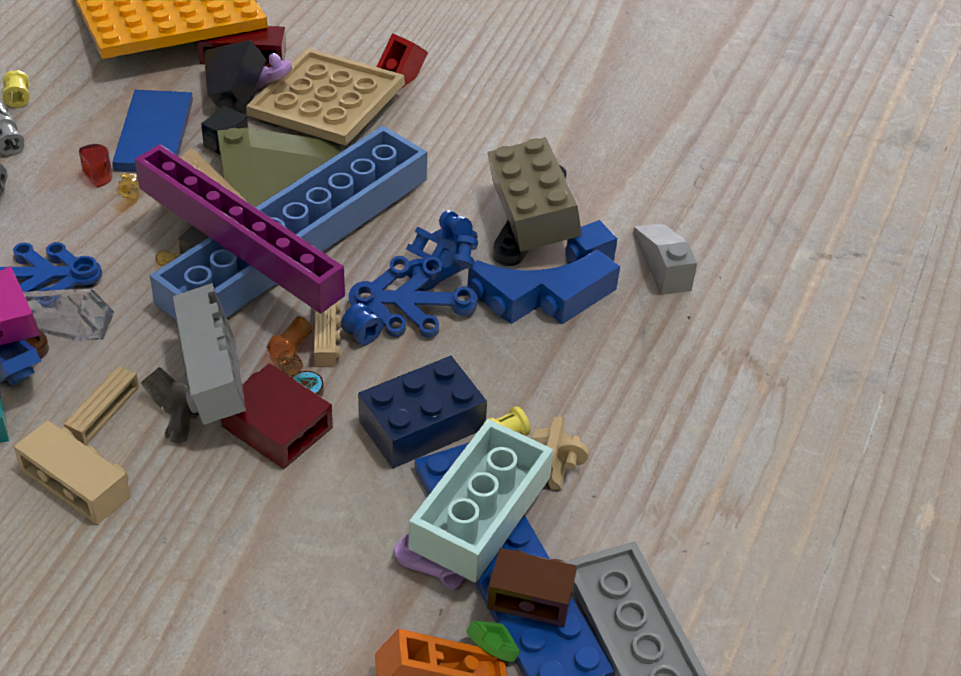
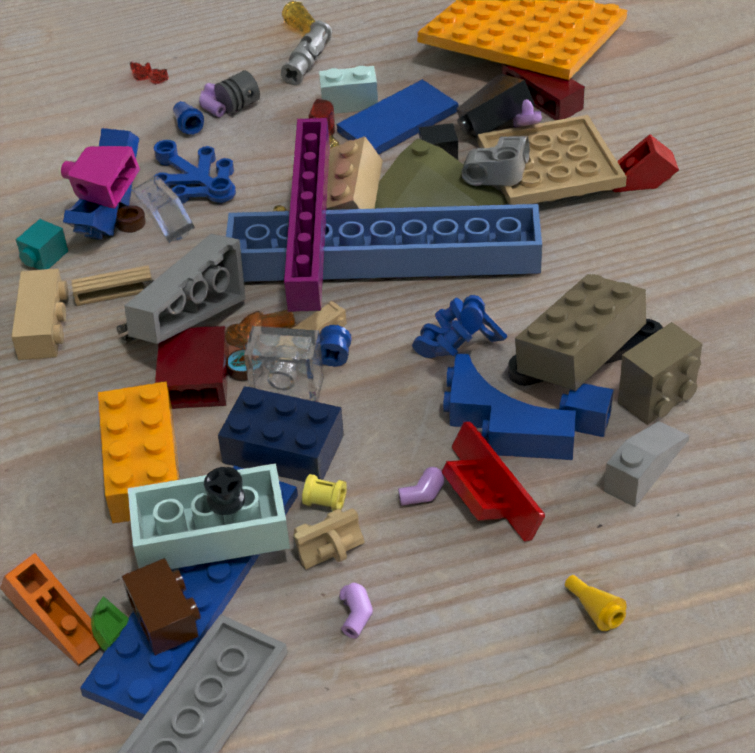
camera: 55 degrees right, 0 degrees up
(16, 89) = (343, 38): light yellow bush -> none
(90, 123) = (349, 88): none -> light aqua brick
(308, 113) = (498, 164): none -> light grey piece
(332, 504) = (136, 442): none -> light orange brick
(360, 356) = (285, 361): none -> clear brick
(408, 297) = (369, 330): blue plant -> none
(493, 450) = (224, 490): none -> black wheel
(564, 374) = (425, 490): none -> lavender arm
(602, 336) = (489, 485): none -> red bracket
(614, 188) = (659, 373): none -> dark tan brick
(637, 481) = (360, 608): none -> lavender arm
(766, 360) = (604, 608): none -> yellow cone

